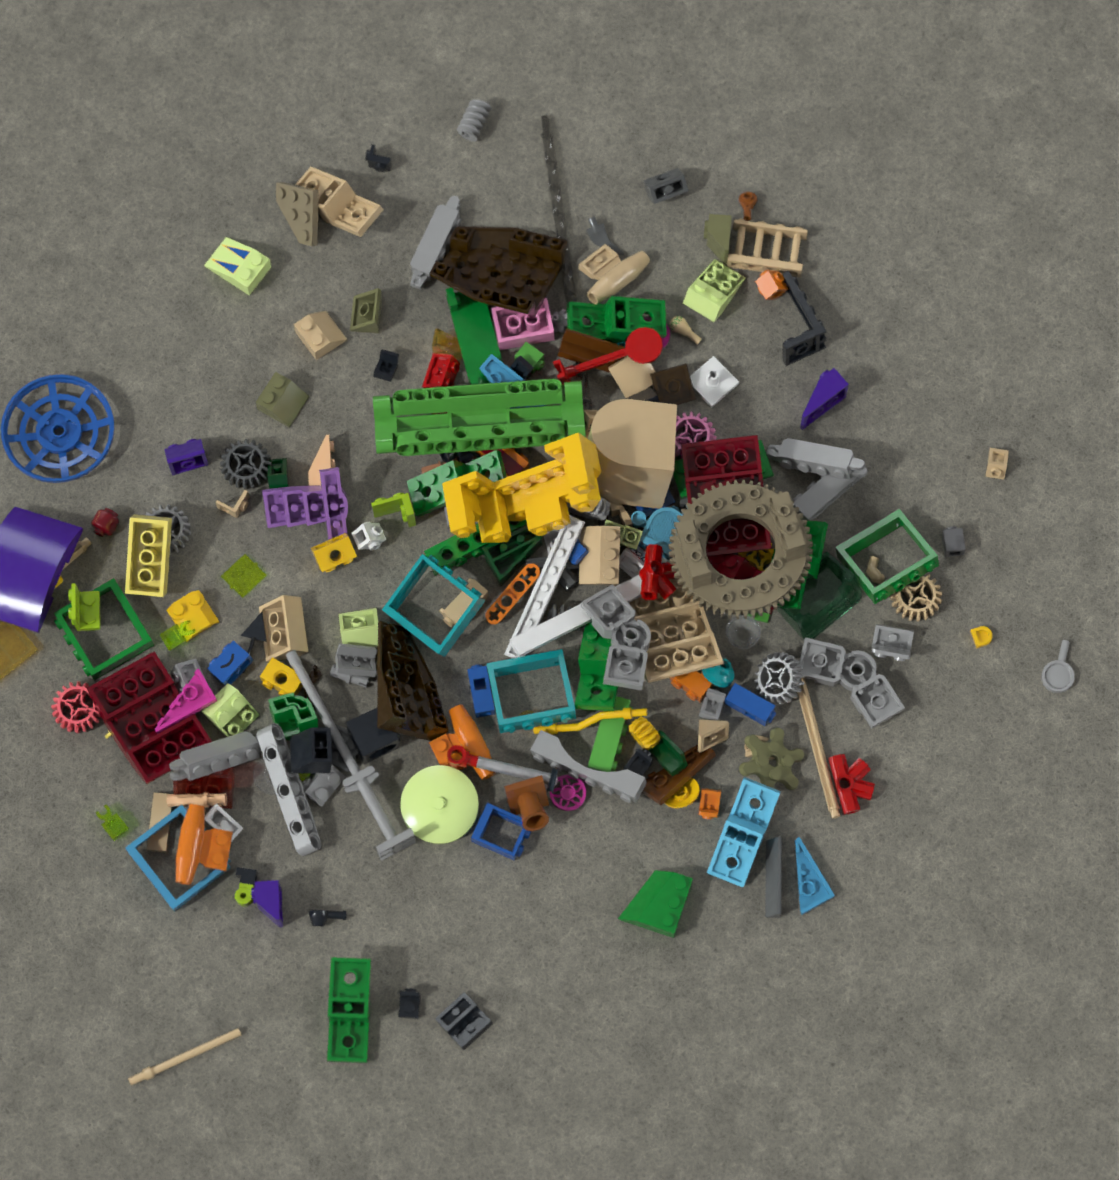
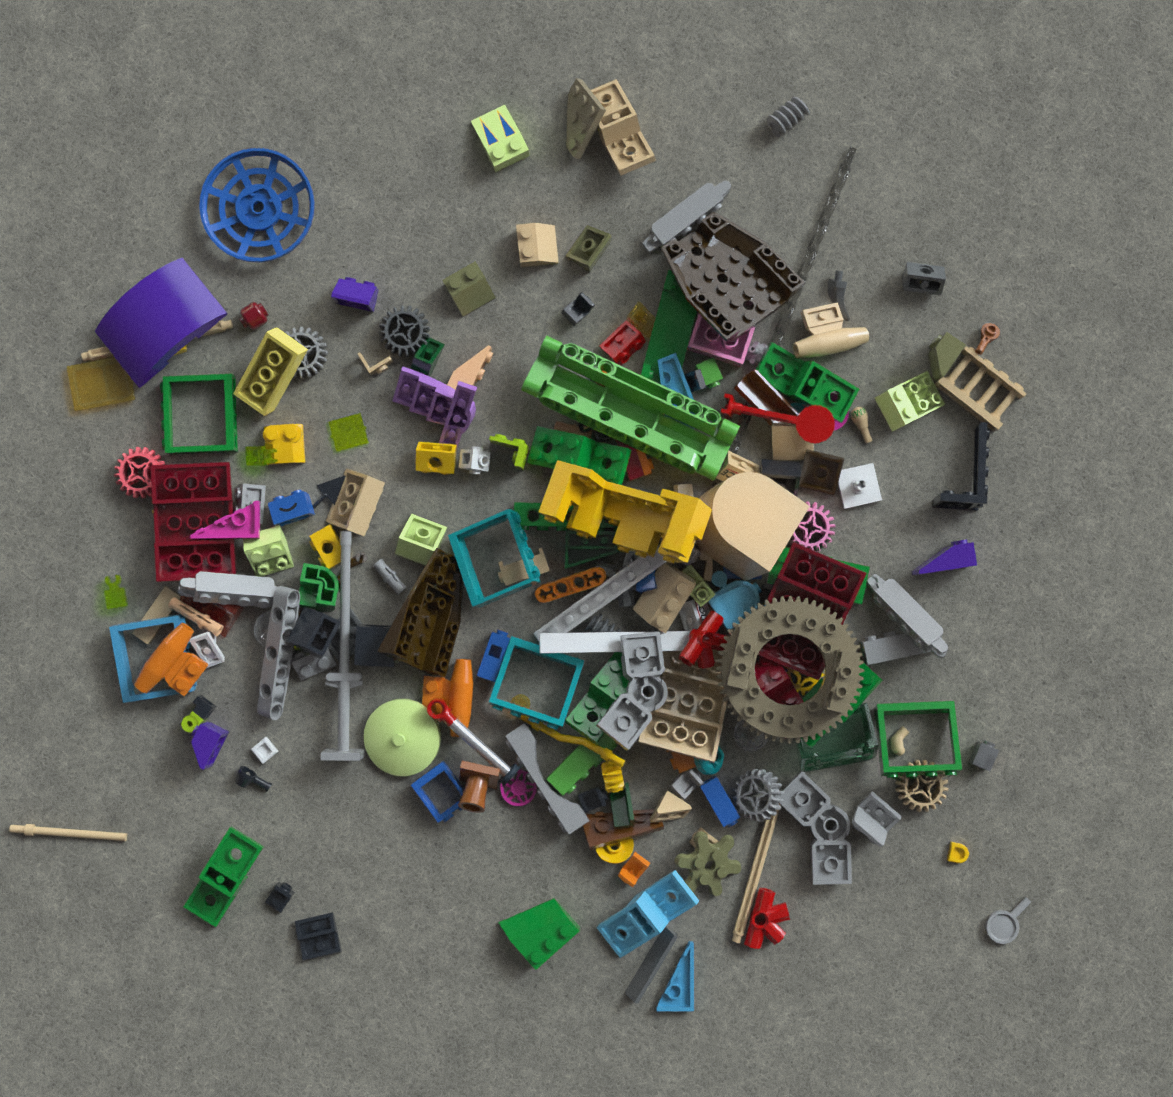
camera: 30 degrees right, 15 degrees up
(85, 609) = (187, 389): lime bracket -> none
(322, 885) = (264, 750): none -> white tile
(356, 660) = (399, 569): light grey bracket -> none
(377, 162) = (679, 111): black bracket -> none
(771, 284) = (963, 426): orange brick -> none
(997, 463) = (1066, 705): tan bracket -> none

